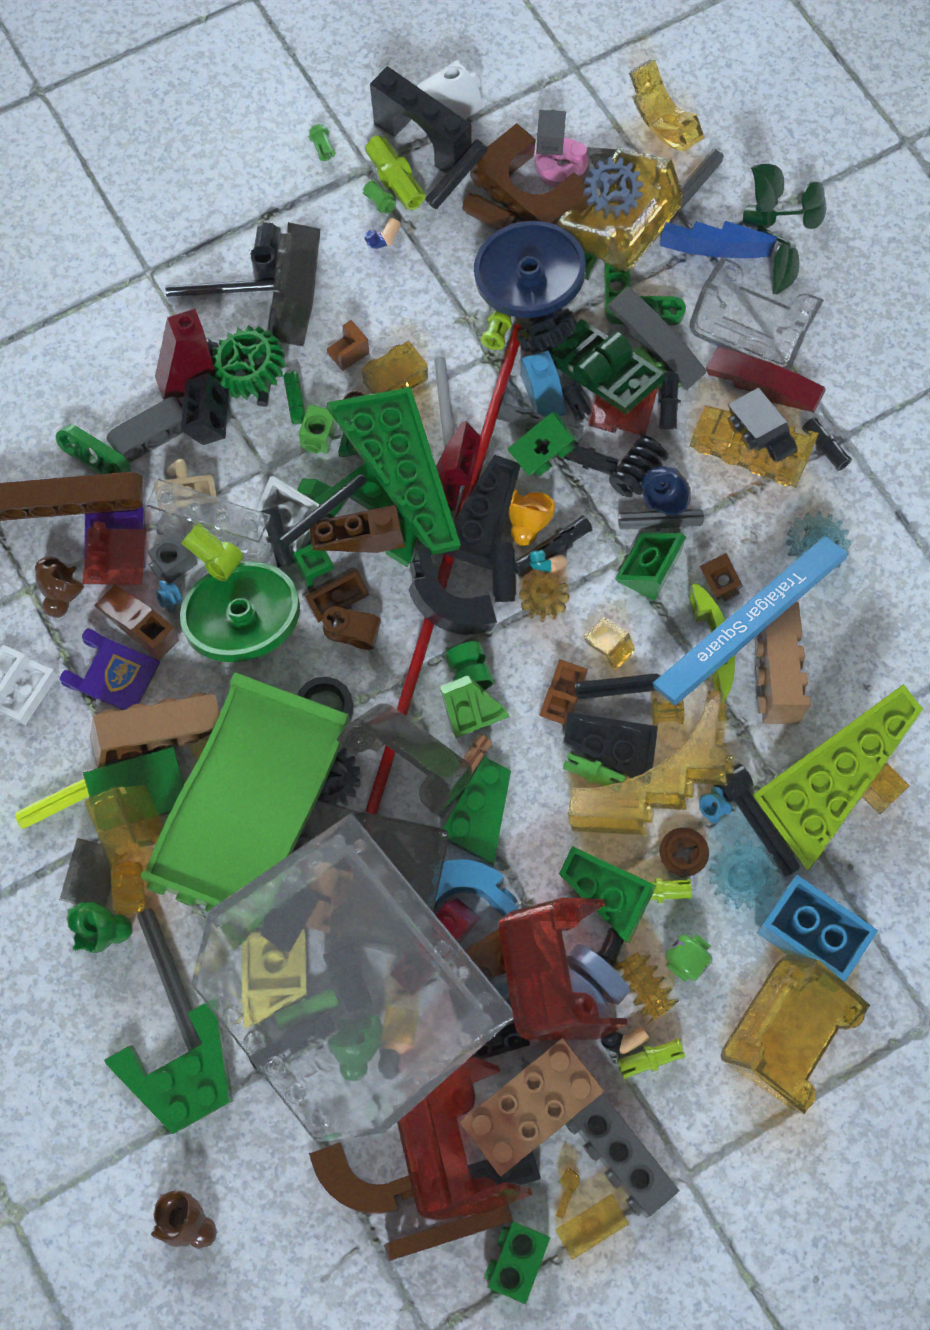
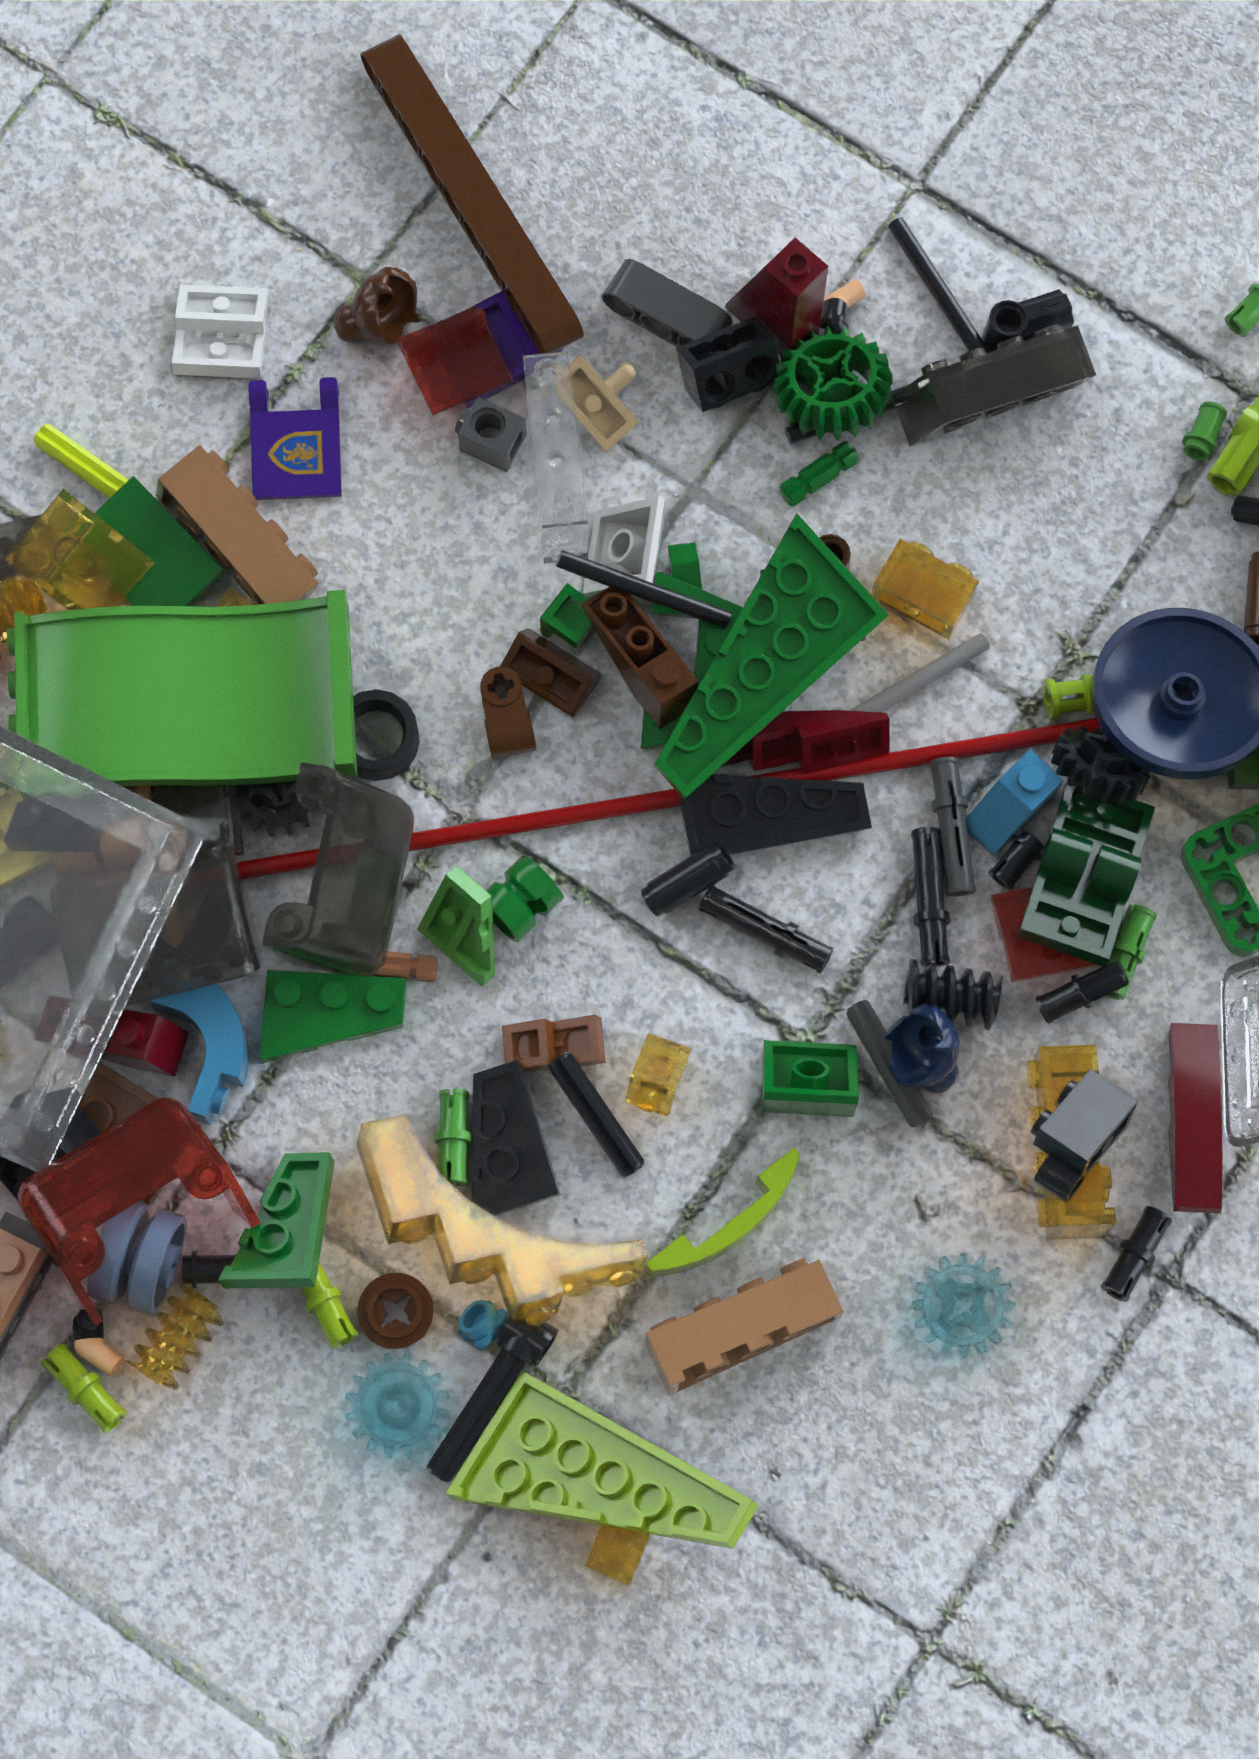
camera: 65 degrees right, 5 degrees up
(77, 444) = (593, 255): green beam -> none
(138, 621) = (377, 437): reddish brown slope -> none
(168, 596) = (434, 457): dark azure plate -> none
(218, 556) = (515, 490): lime piece -> none
(240, 615) = (452, 558): green dish -> none
(275, 530) = (591, 547): black pin -> none
(315, 419) = (770, 512): bright green brick -> none
(350, 348) = (934, 507): dark orange panel -> none
(378, 240) = (1140, 470): arm -> none
(443, 609) = (588, 838): black arch -> none
(527, 448) = (932, 845): green brick -> none
(529, 516) = (800, 861): light orange piece -> none
(550, 565) = (728, 935): teal arm -> none
(555, 596) = (663, 947): clear yellow gear -> none
(657, 337) = (1177, 929): dark grey slope -> none
(666, 712) = (591, 1199): clear yellow bush -> none
(688, 957) = (244, 1379): bright green head -> none
(714, 570) = (828, 1174): reddish brown brick -> none
(749, 620) = (776, 1252): dark azure tile -> none
(791, 1028) = (200, 1562): clear yellow windscreen -> none
(817, 927) = (356, 1539): dark azure brick -> none

